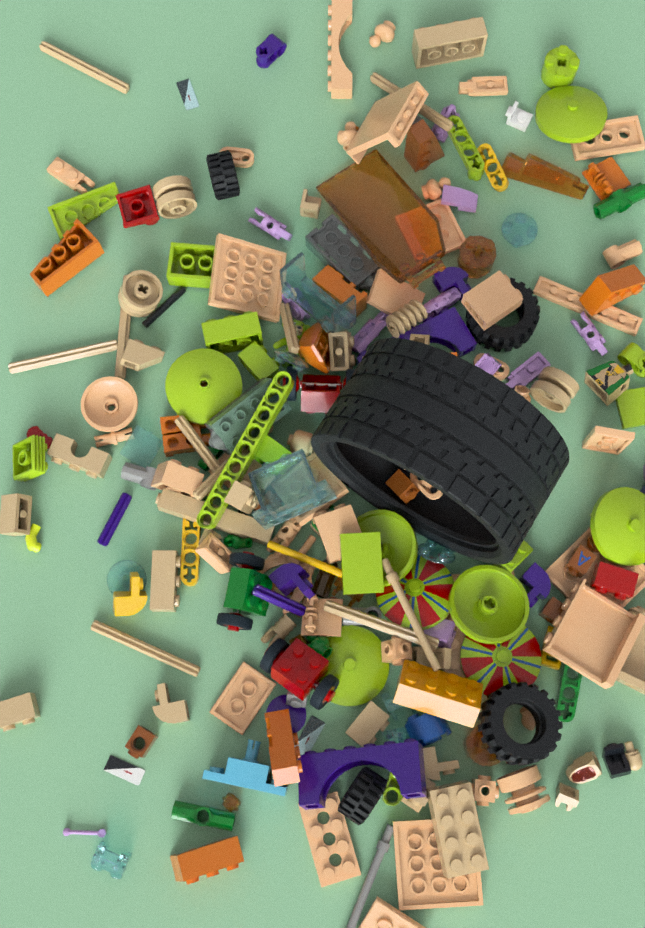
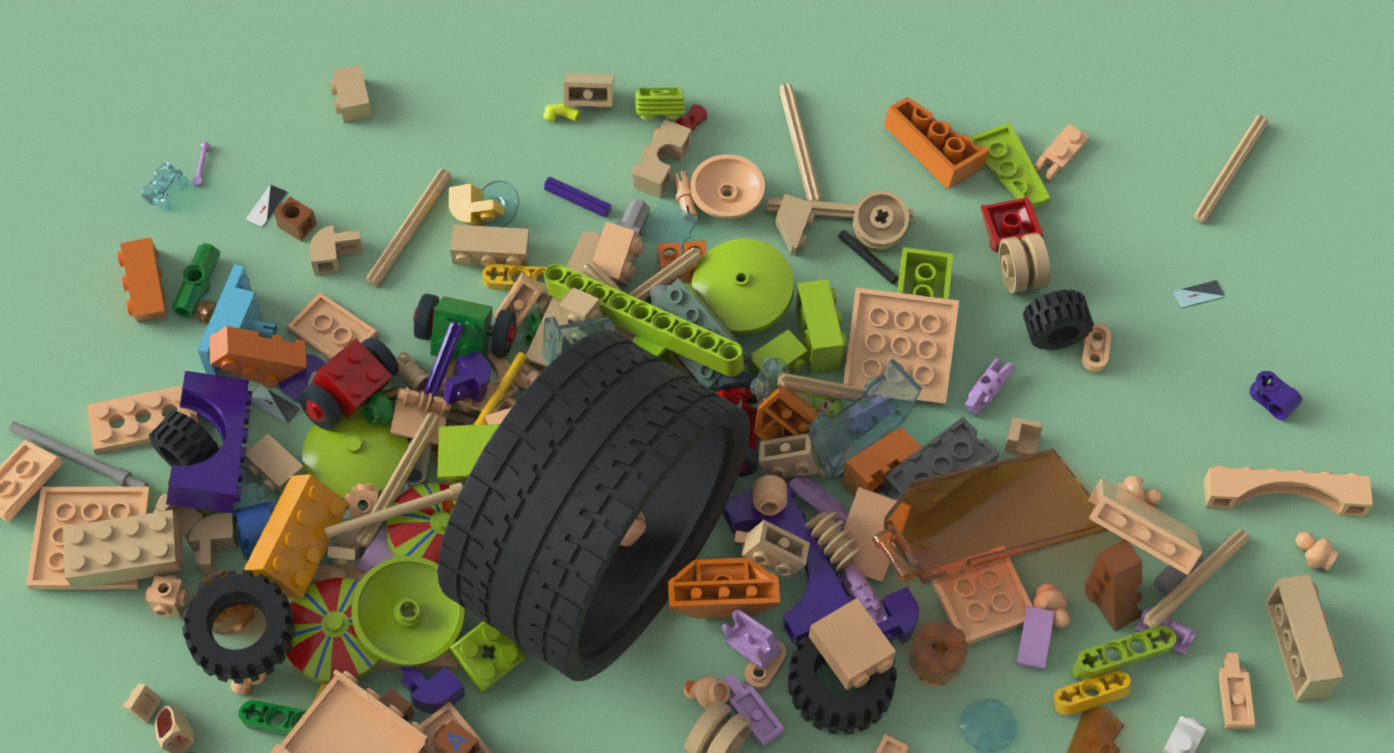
camera: 90 degrees right, 15 degrees down
(523, 790) = (157, 640): light nougat wheel -> none

